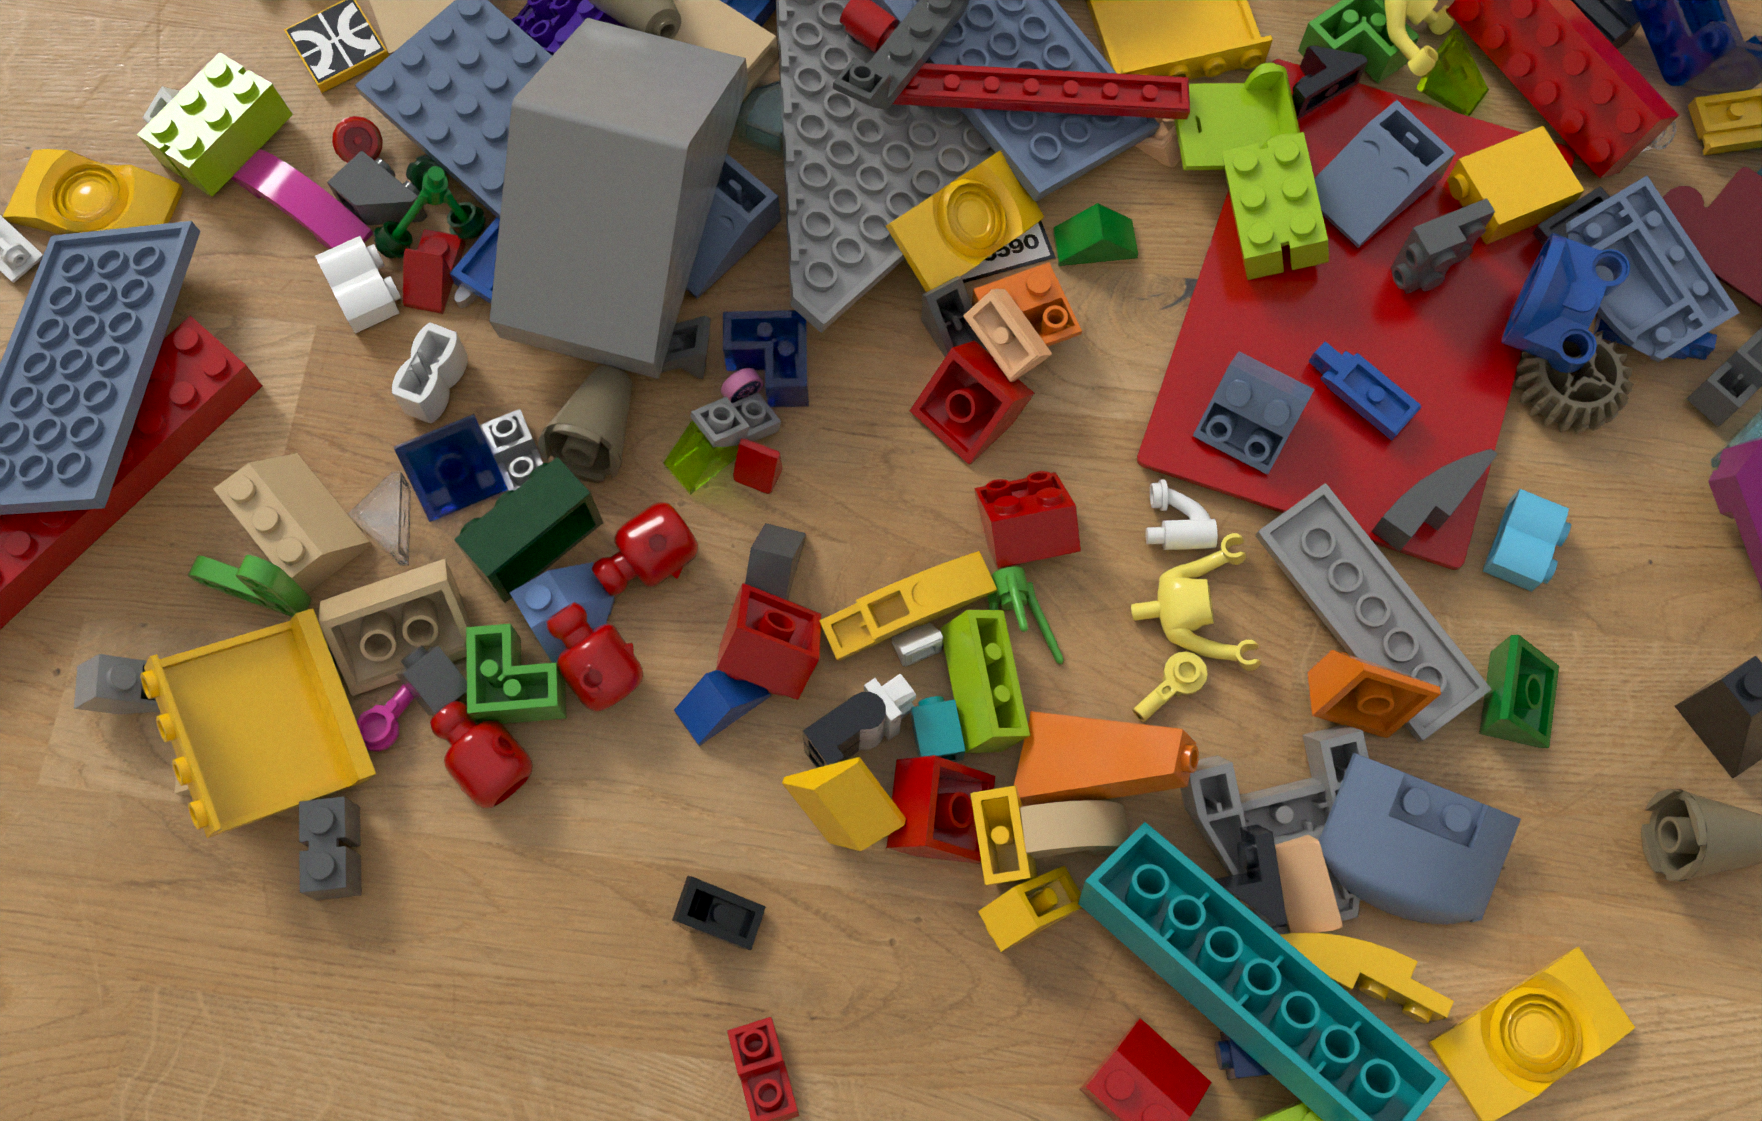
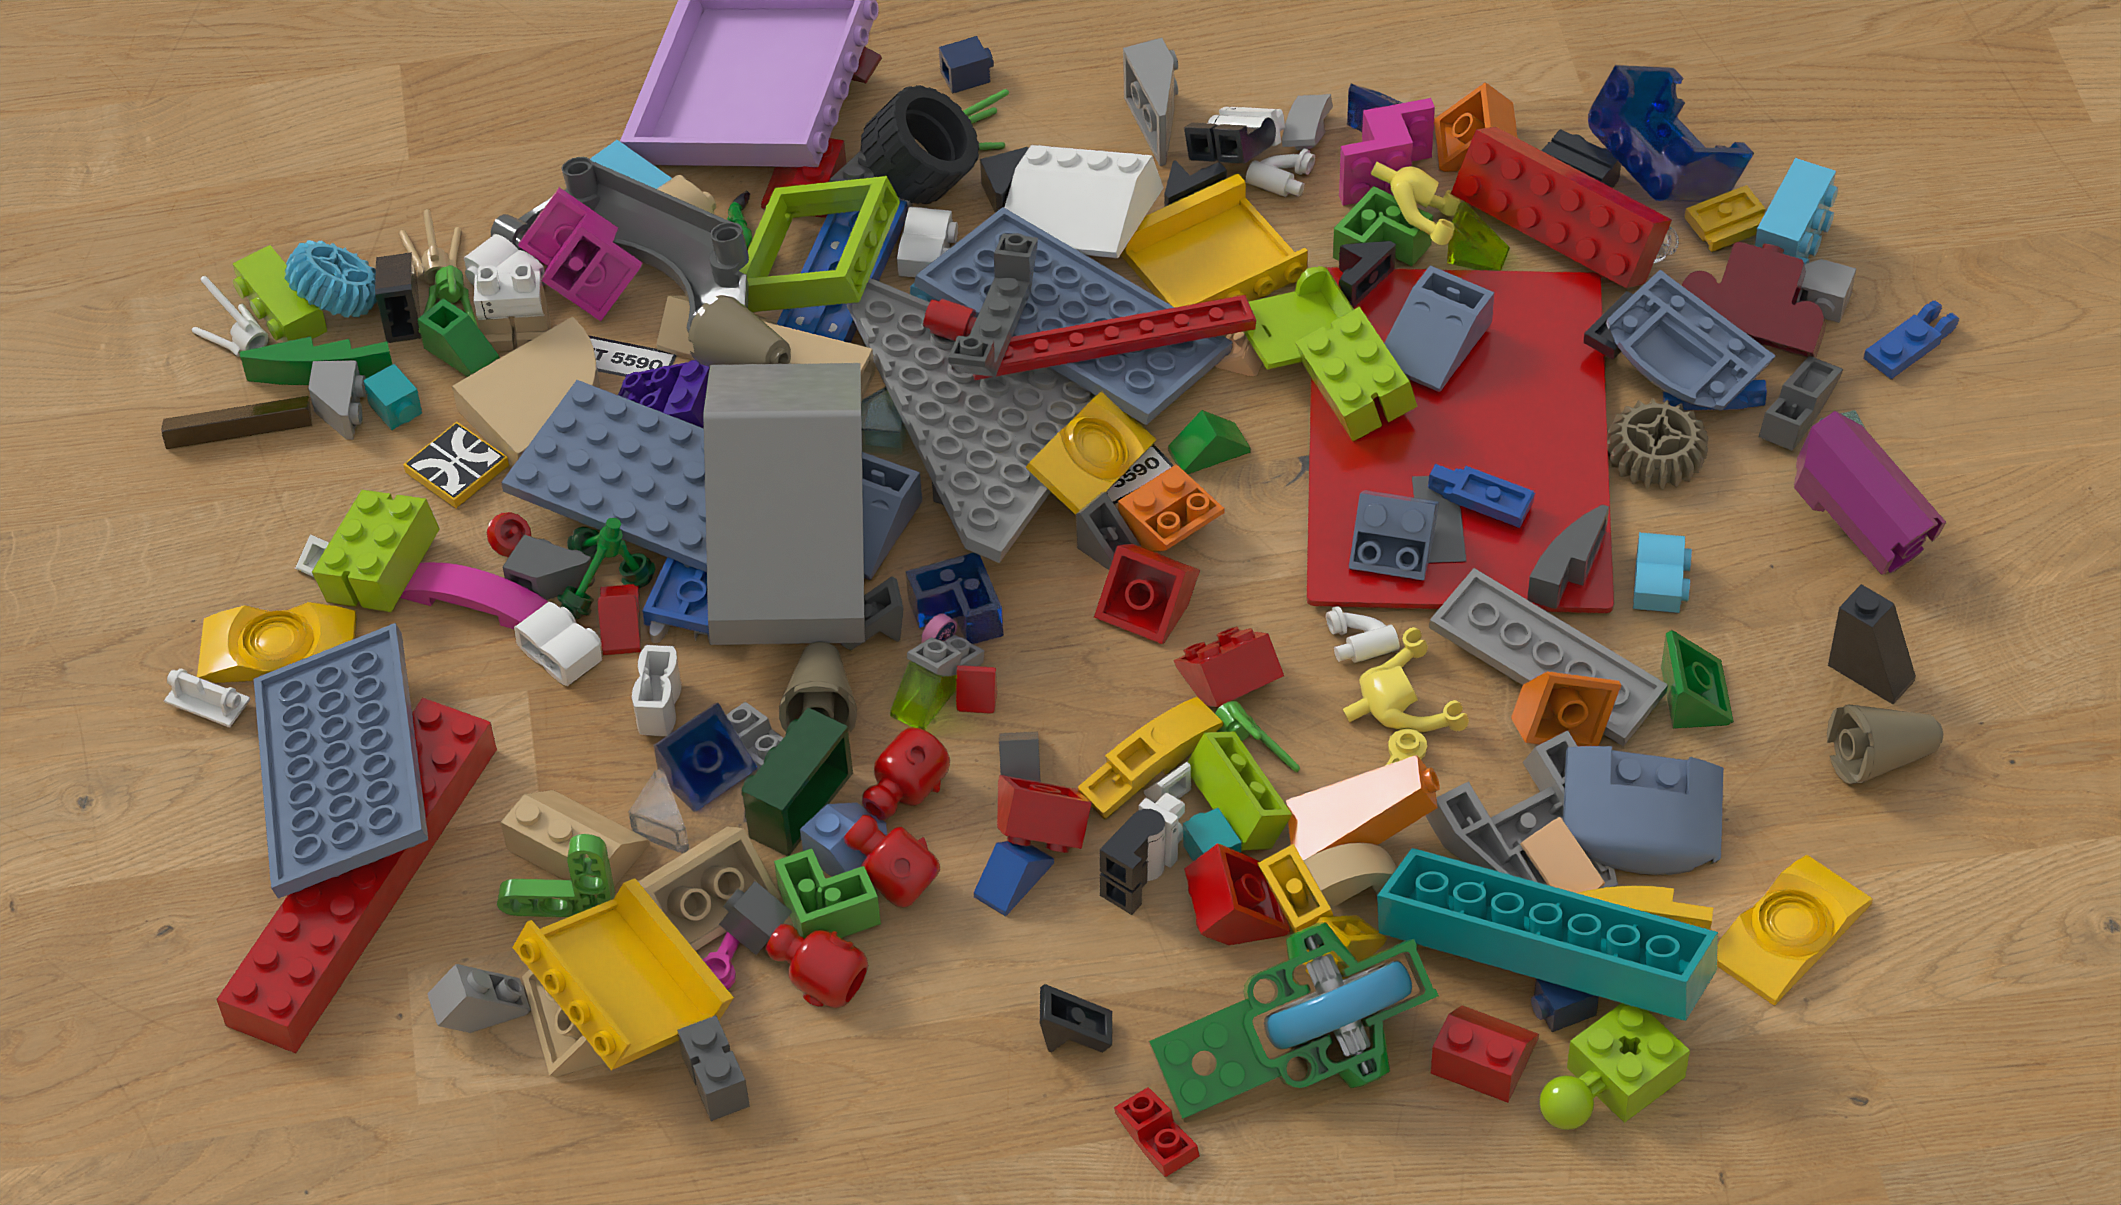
camera: 15 degrees left, 20 degrees down
(845, 803) = (1153, 902): yellow slope -> none
(978, 1008) = (1334, 1007): none -> green piece
(1007, 334) = (1160, 524): light nougat slope -> none
(1261, 884) = (1522, 856): black slope -> none
(1311, 429) = (1448, 536): none -> dark grey sticker
(1438, 245) = (1505, 366): dark grey plate -> none
(1520, 178) = (1553, 309): yellow brick -> none
(1562, 301) = (1621, 379): blue piece -> none

